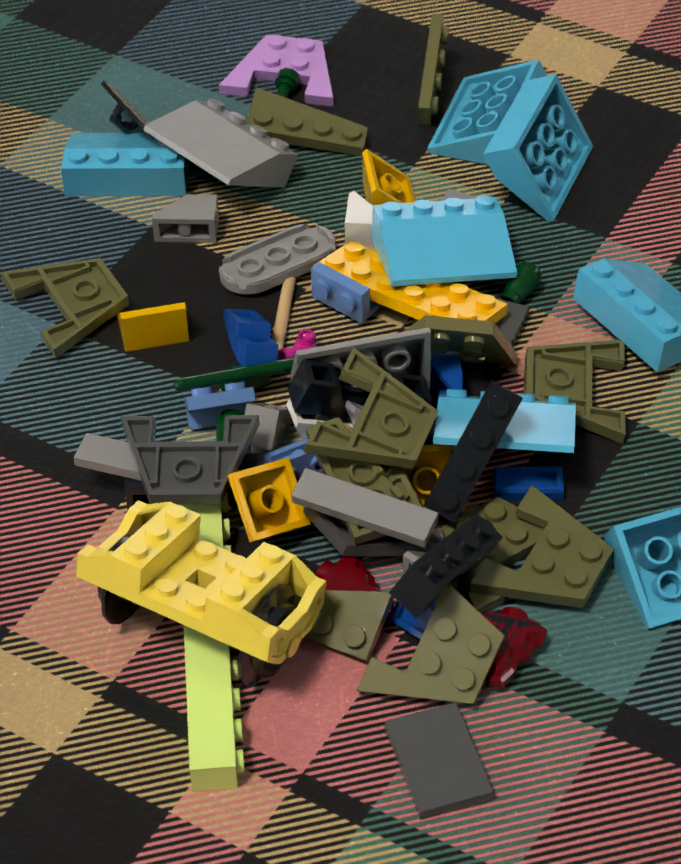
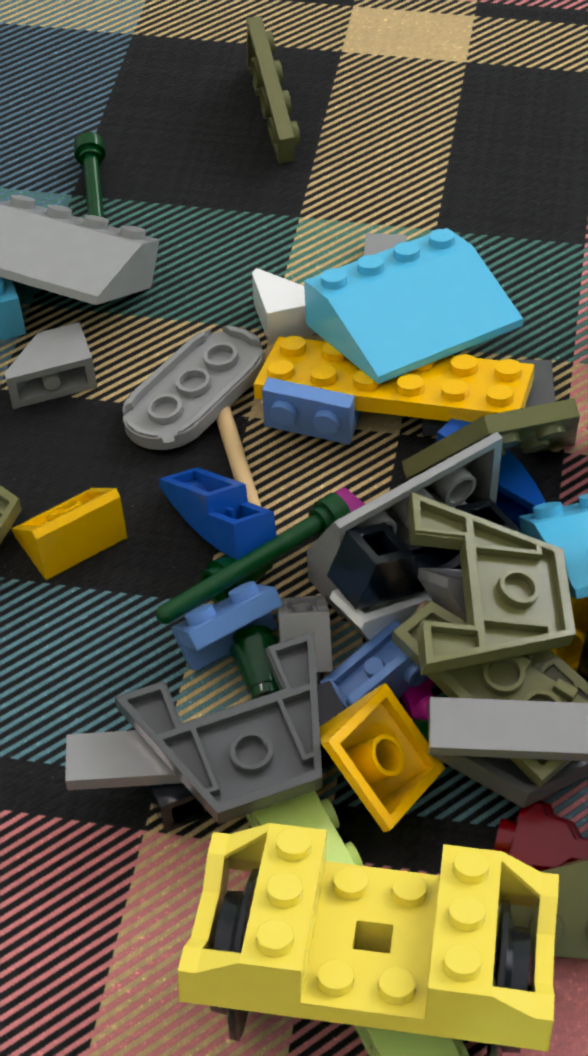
camera: 20 degrees left, 5 degrees up
(281, 52) = (57, 122): lavender wing -> none
(305, 125) = (143, 198): olive wing -> none
(305, 341) = (291, 503): dark pink arm -> none
(384, 182) = (283, 249): yellow slope -> none
(479, 110) = (369, 127): medium azure slope -> none
(526, 282) = (525, 340): dark green cone -> none
(539, 146) = (457, 148): medium azure slope -> none

